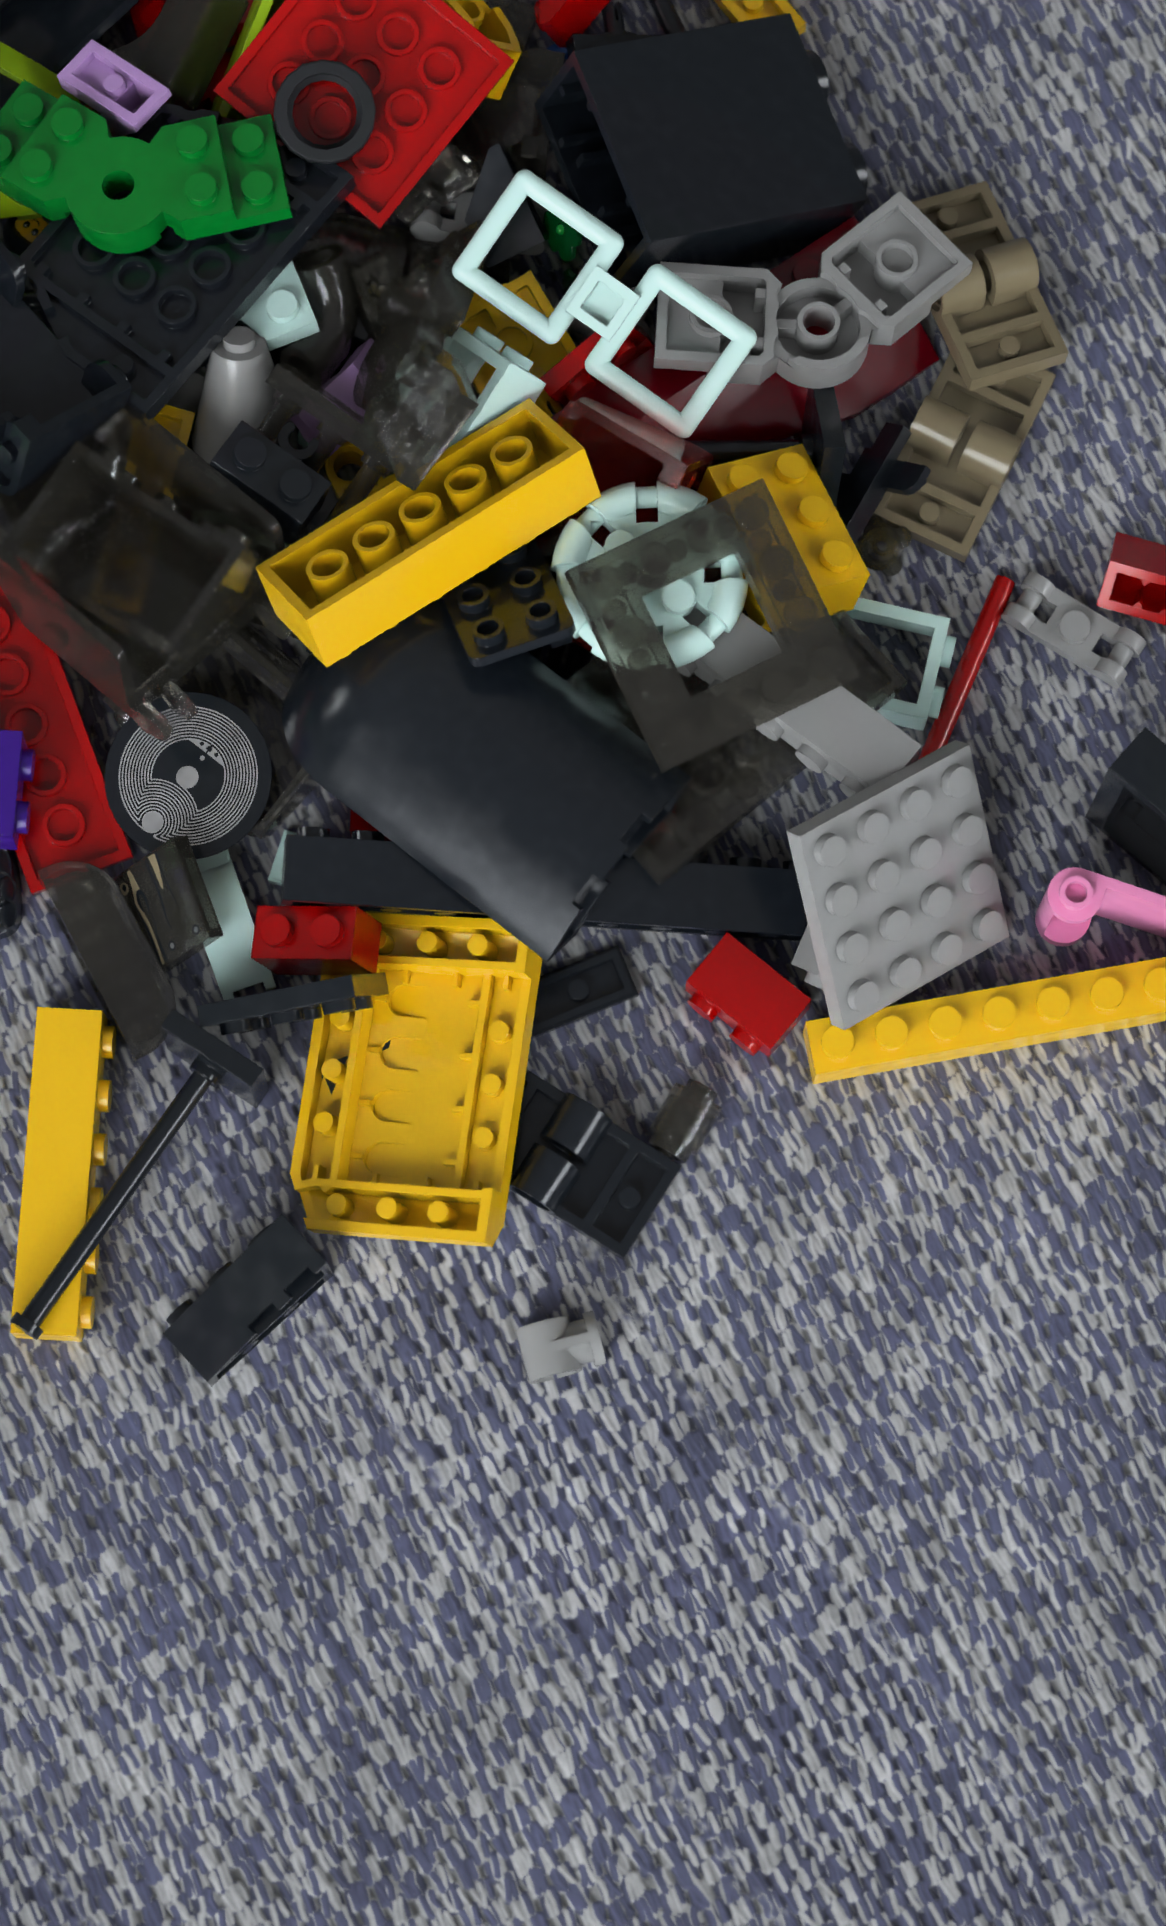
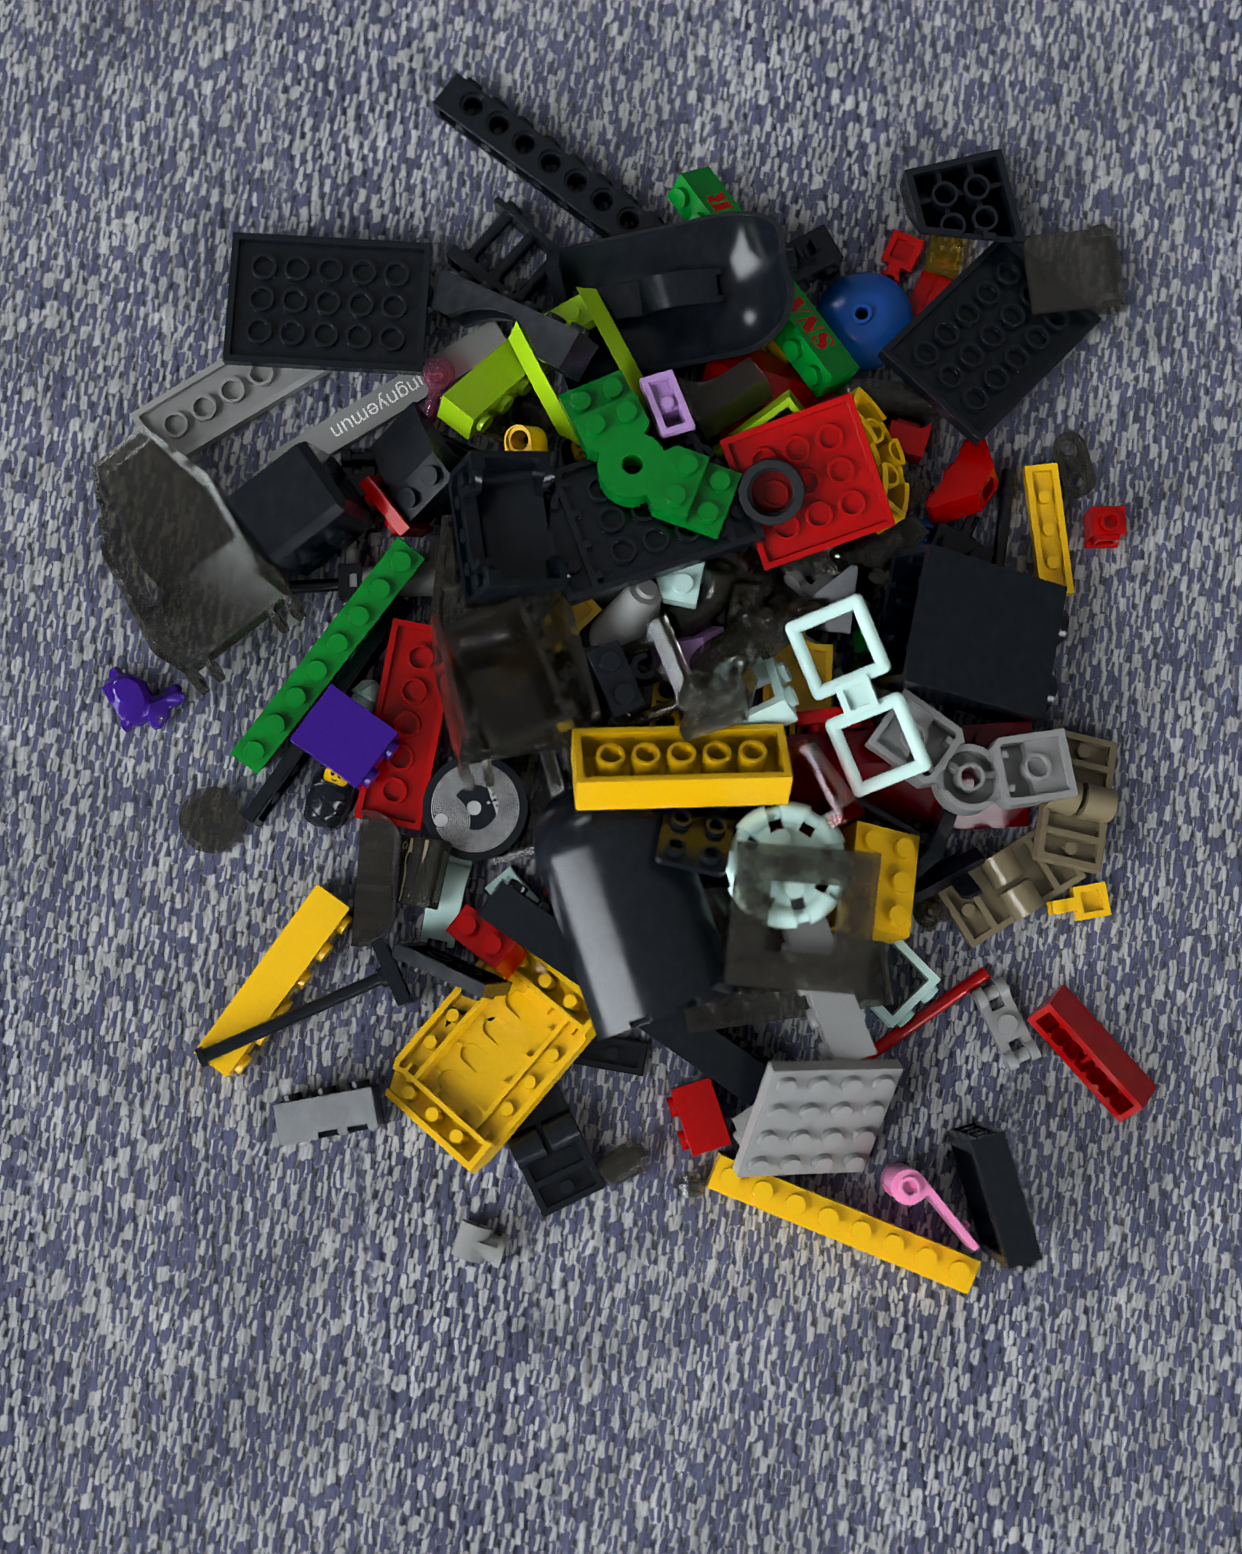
camera: 30 degrees right, 5 degrees up
(792, 1093) = (690, 1184): none -> clear smoke plate
(1074, 408) = (1085, 901): none -> yellow plate

